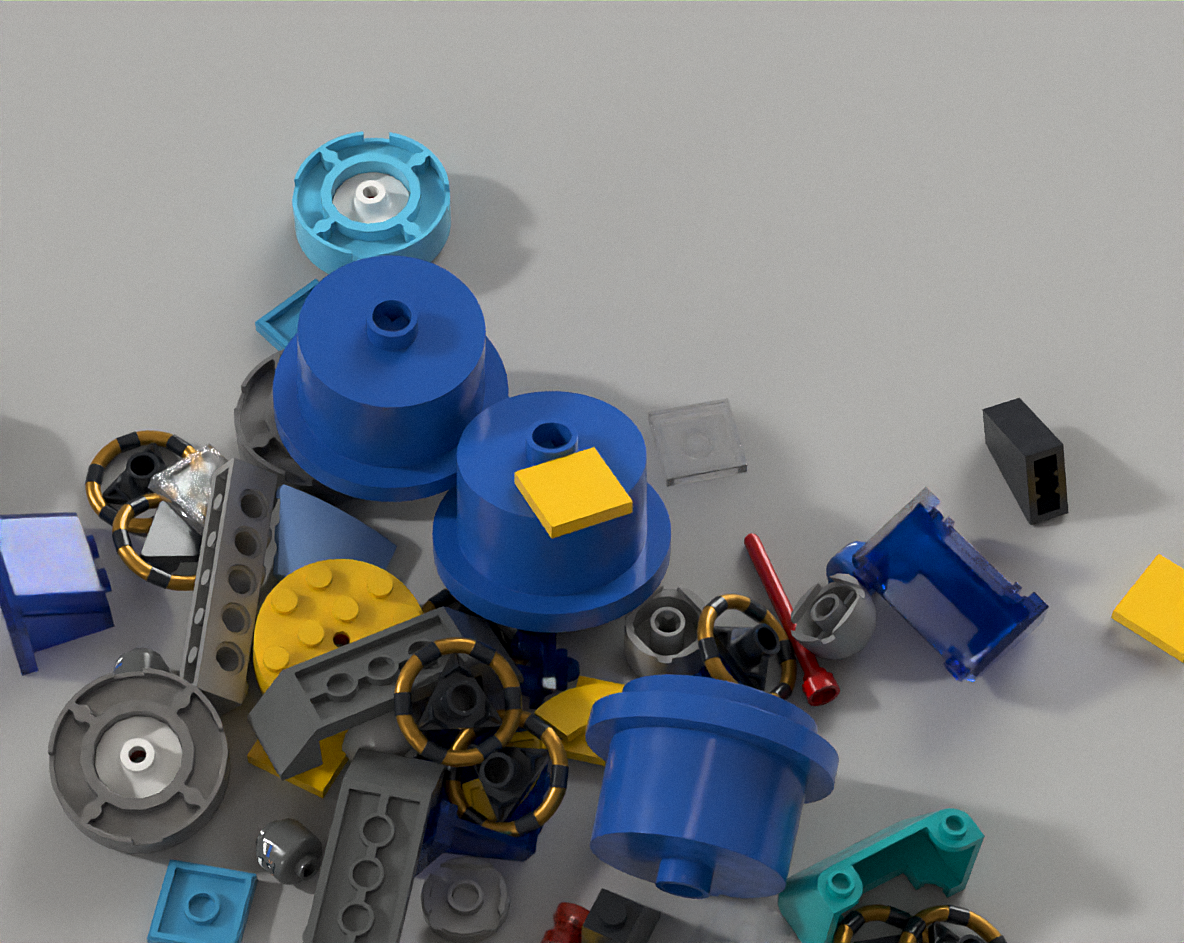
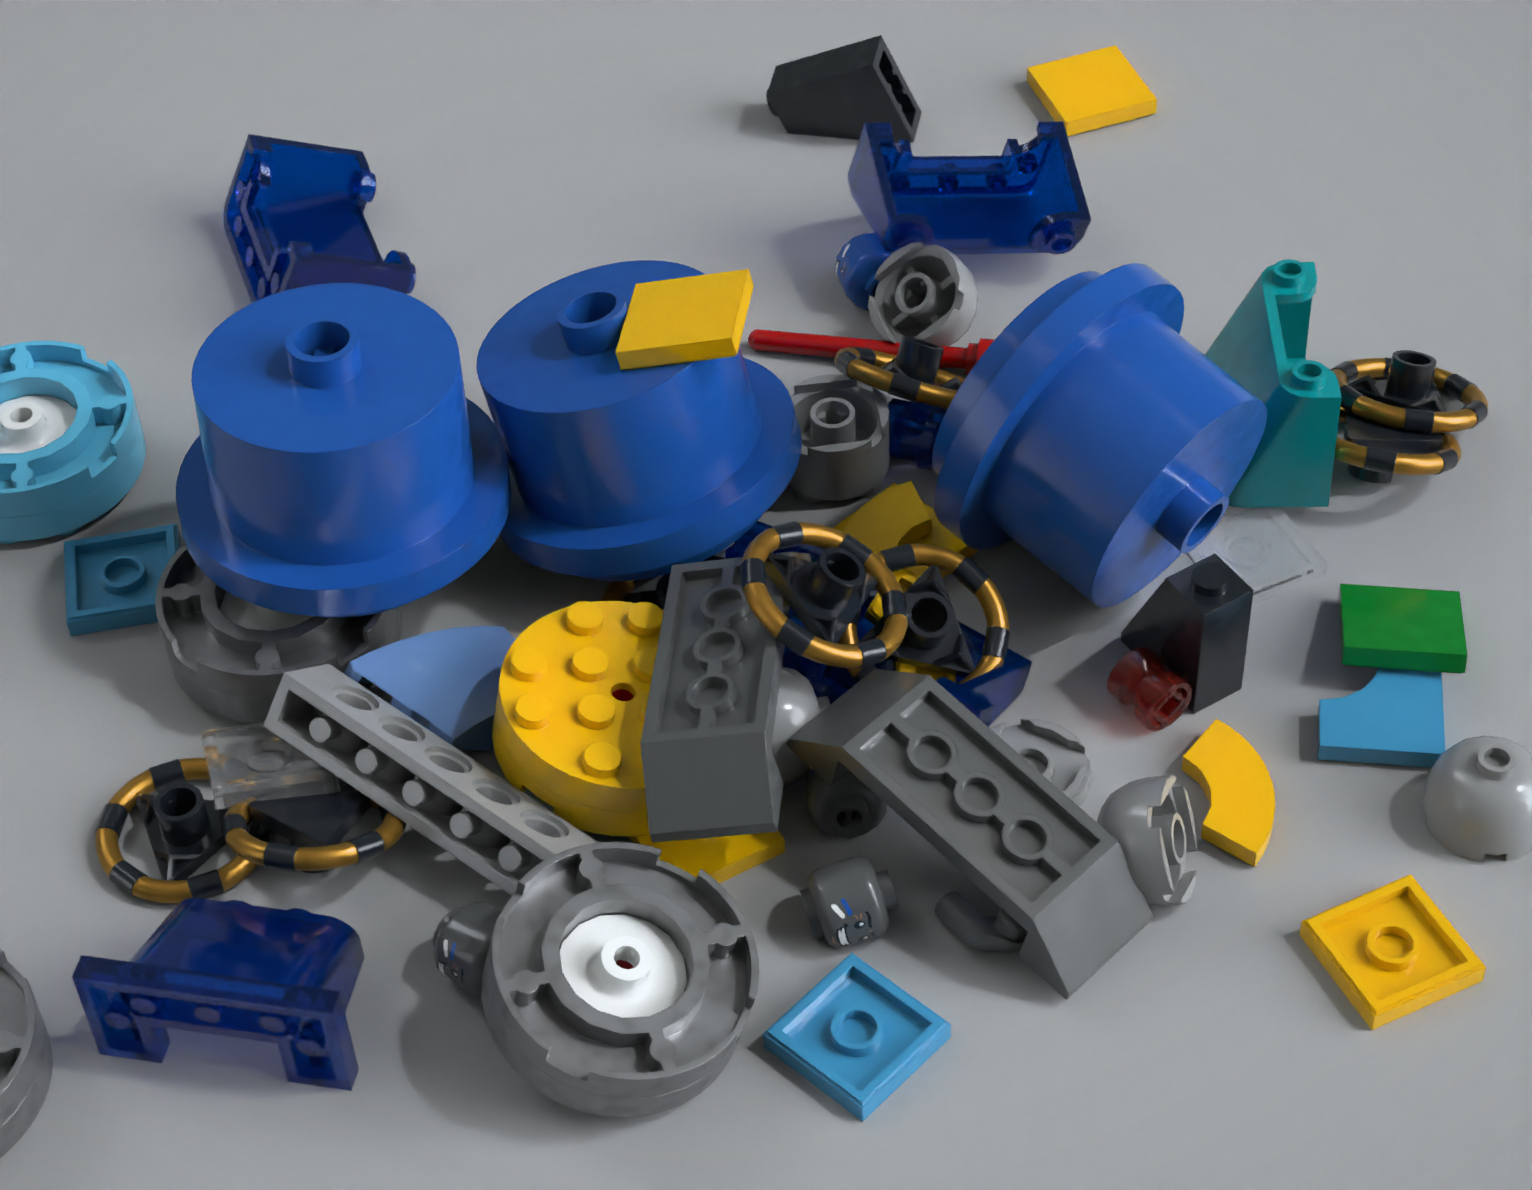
camera: 55 degrees left, 10 degrees down
(659, 236) = (302, 222): none -> clear blue windscreen

